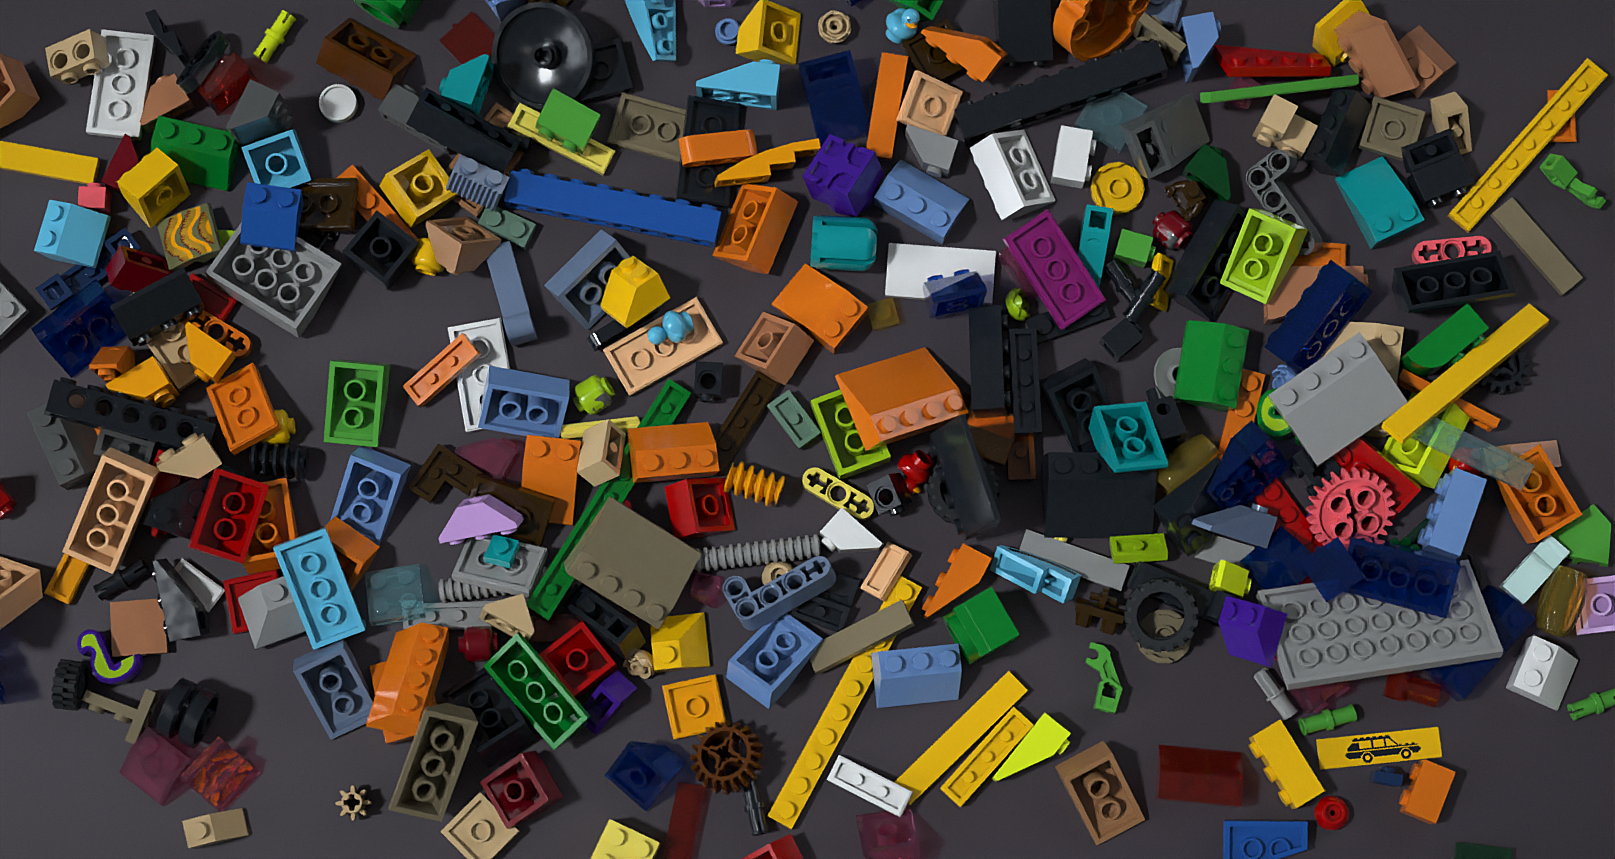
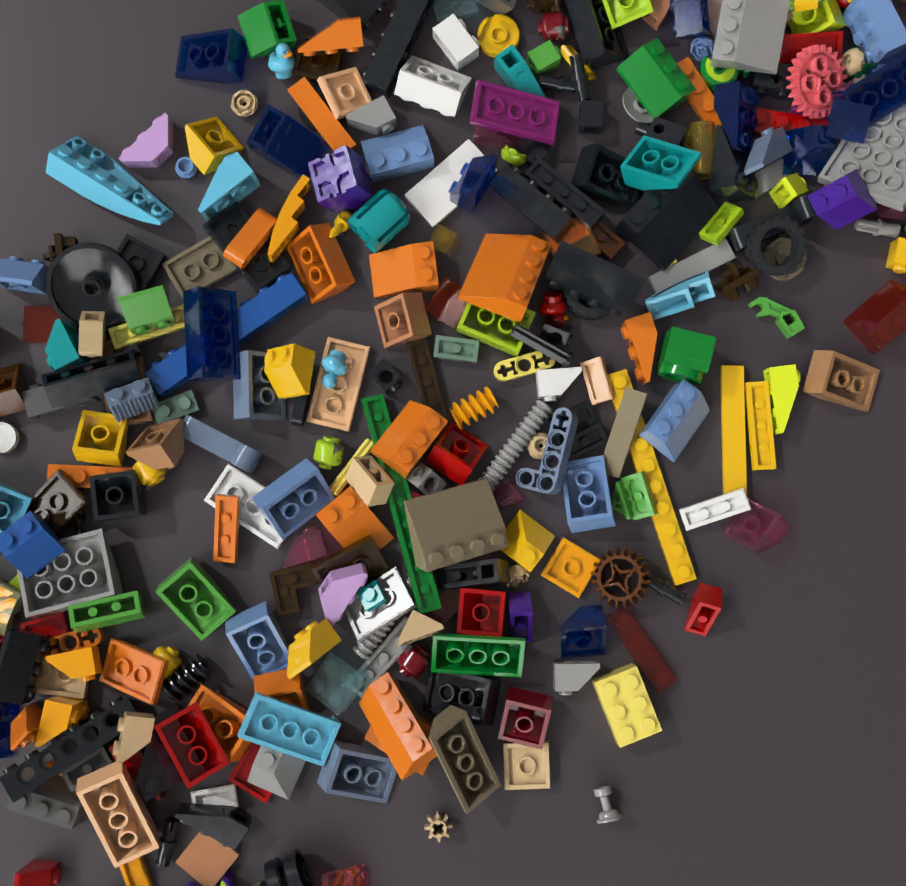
camera: 50 degrees left, 5 degrees up
(273, 337) = (106, 611): none -> bright green brick
(408, 539) = (310, 645): none -> yellow slope
(502, 94) = (92, 333): none -> tan slope
(598, 196) = (211, 334): none -> clear blue slope
(598, 796) = (572, 675): none -> light grey slope
(650, 501) = (426, 479): none -> light grey brick
(807, 212) = (340, 223): none -> yellow bar
(811, 702) = (633, 497): none -> bright green slope
(822, 369) = (446, 305): none -> clear red piece
(866, 489) = (542, 345): none -> black axle
(1406, 525) = (853, 60): none -> tan plate

